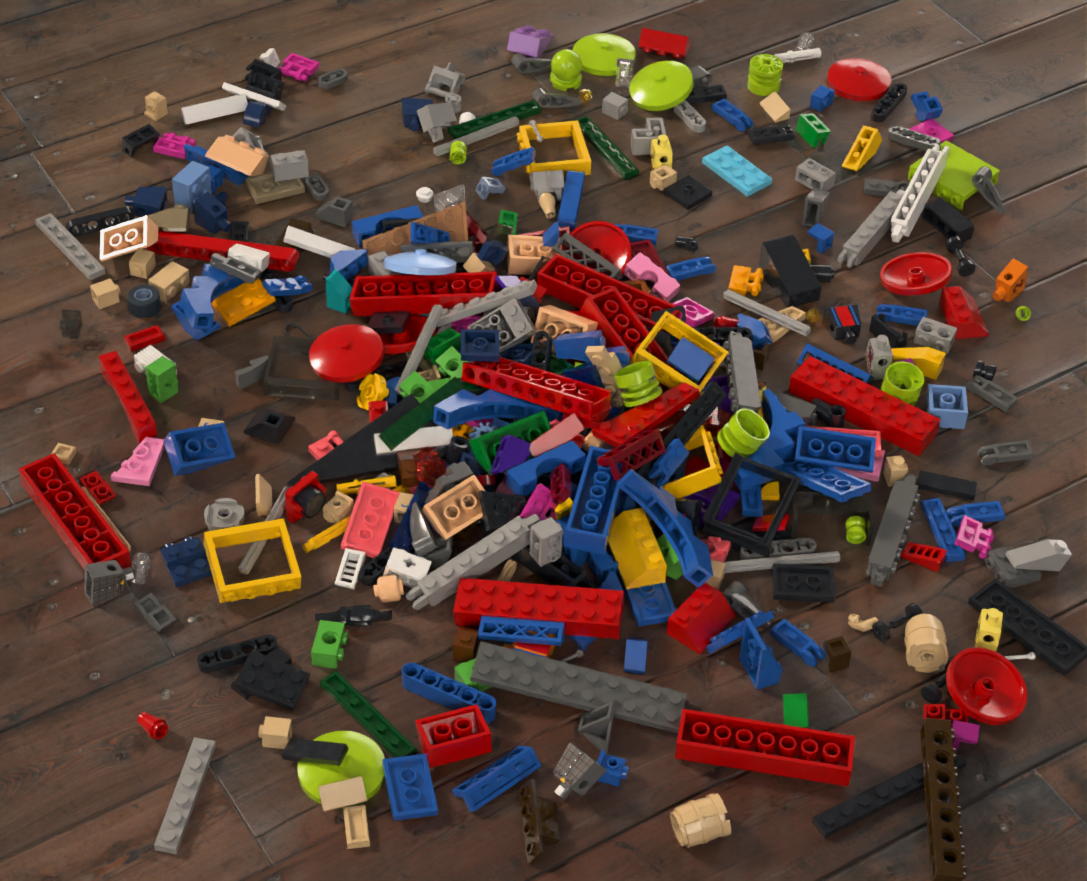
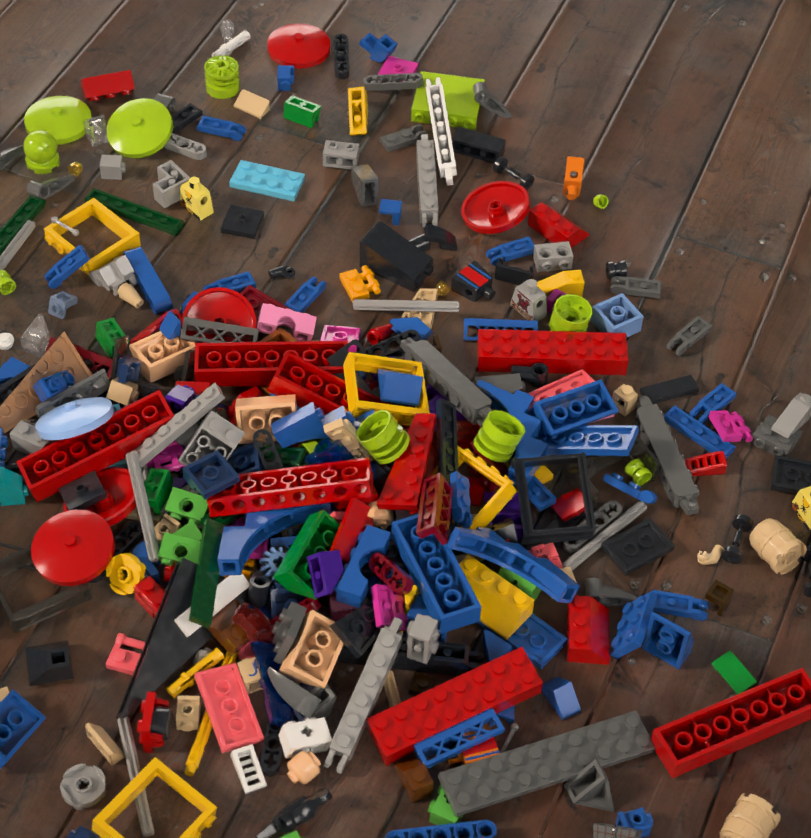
camera: 35 degrees left, 5 degrees up
(602, 565) = (469, 633): blue brick -> none
(662, 177) = (212, 222): tan brick -> none
(771, 134) = (269, 132): black hinge -> none
(836, 537) = (630, 488): none -> blue hinge
(844, 272) = (439, 235): none -> black slope

